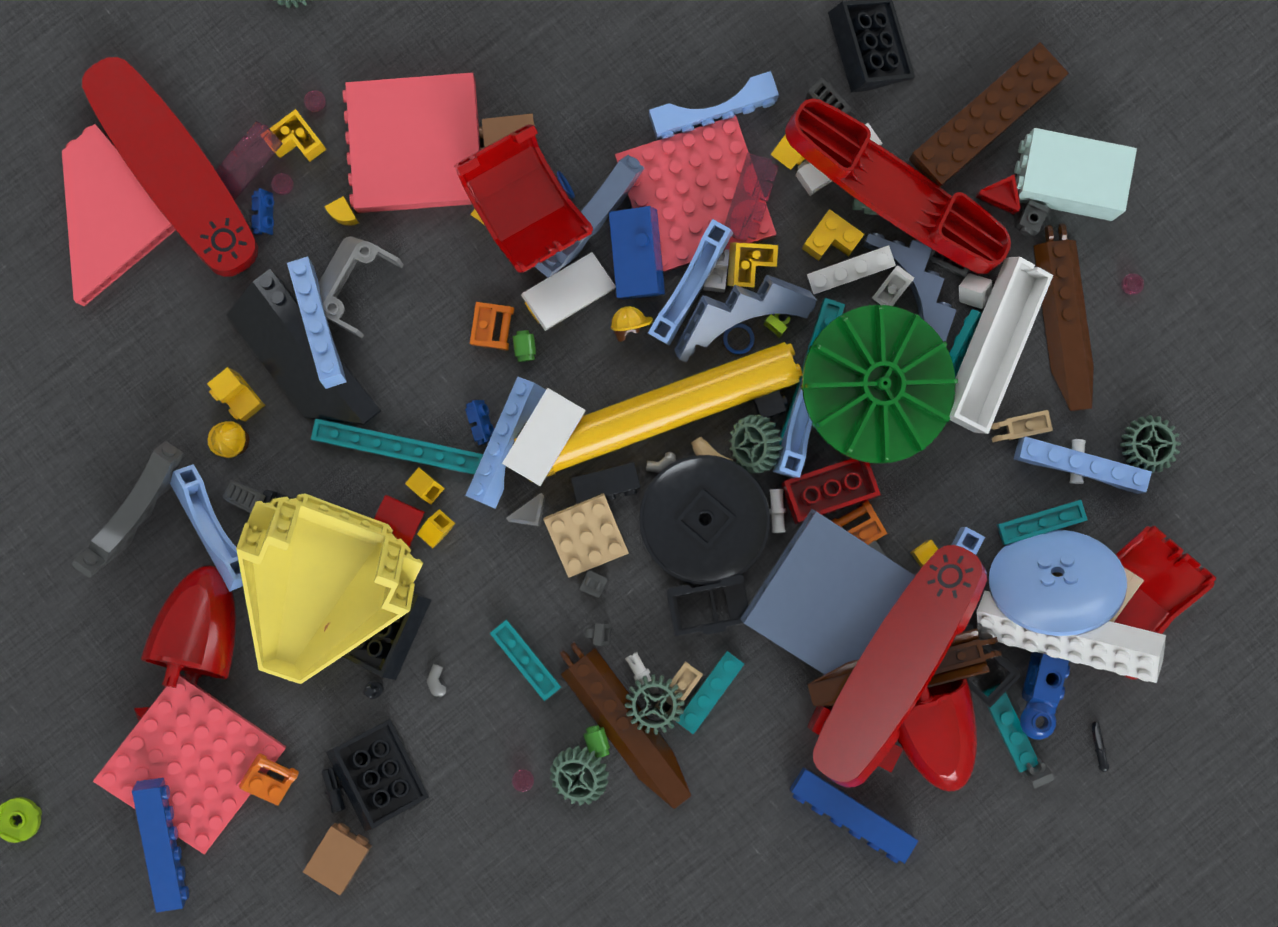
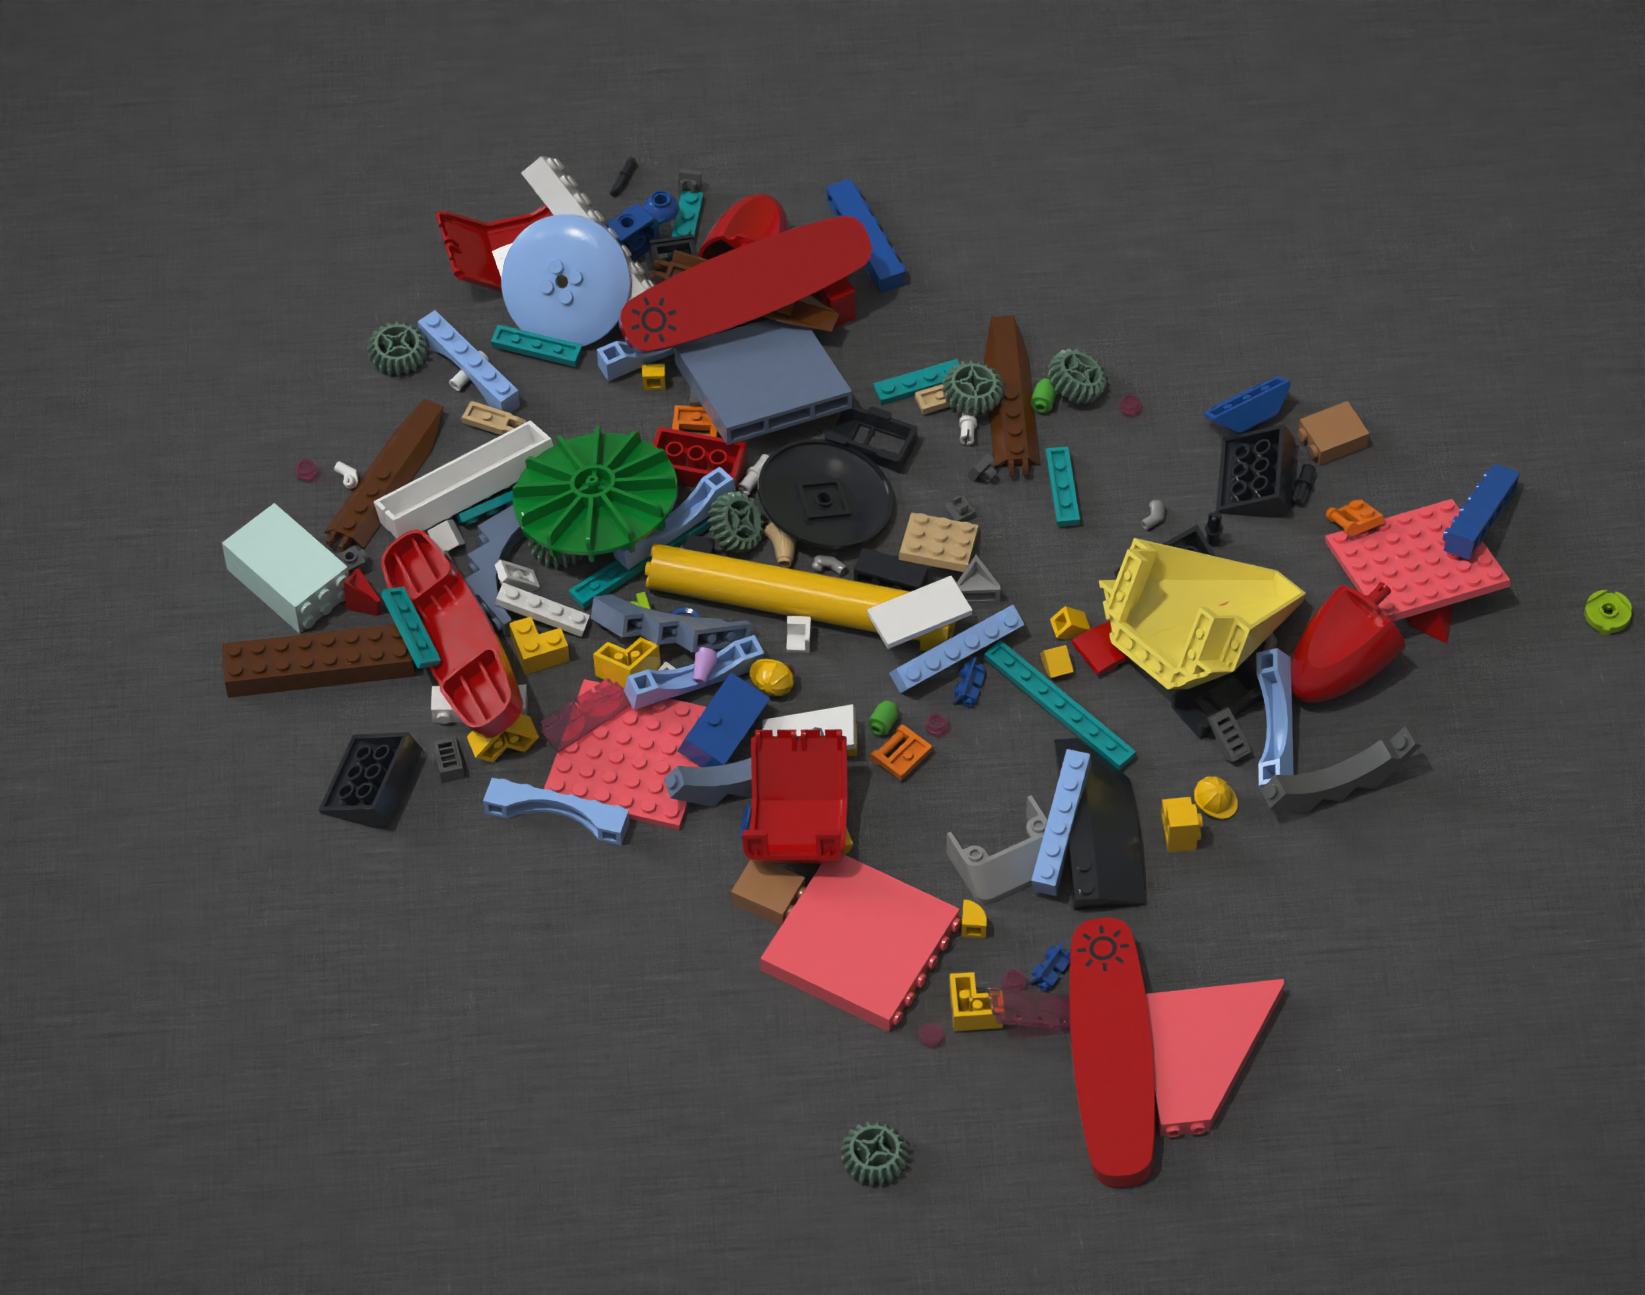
camera: 145 degrees left, 30 degrees down
(423, 839) = (1250, 406): none -> blue wedge
(481, 369) = (936, 724): none -> clear pink plate
(640, 380) = (798, 634): none -> white panel
(685, 290) = (704, 663): none -> lavender cone
(933, 172) = (411, 627): none -> teal plate
(1094, 302) = (349, 473): none -> white arm

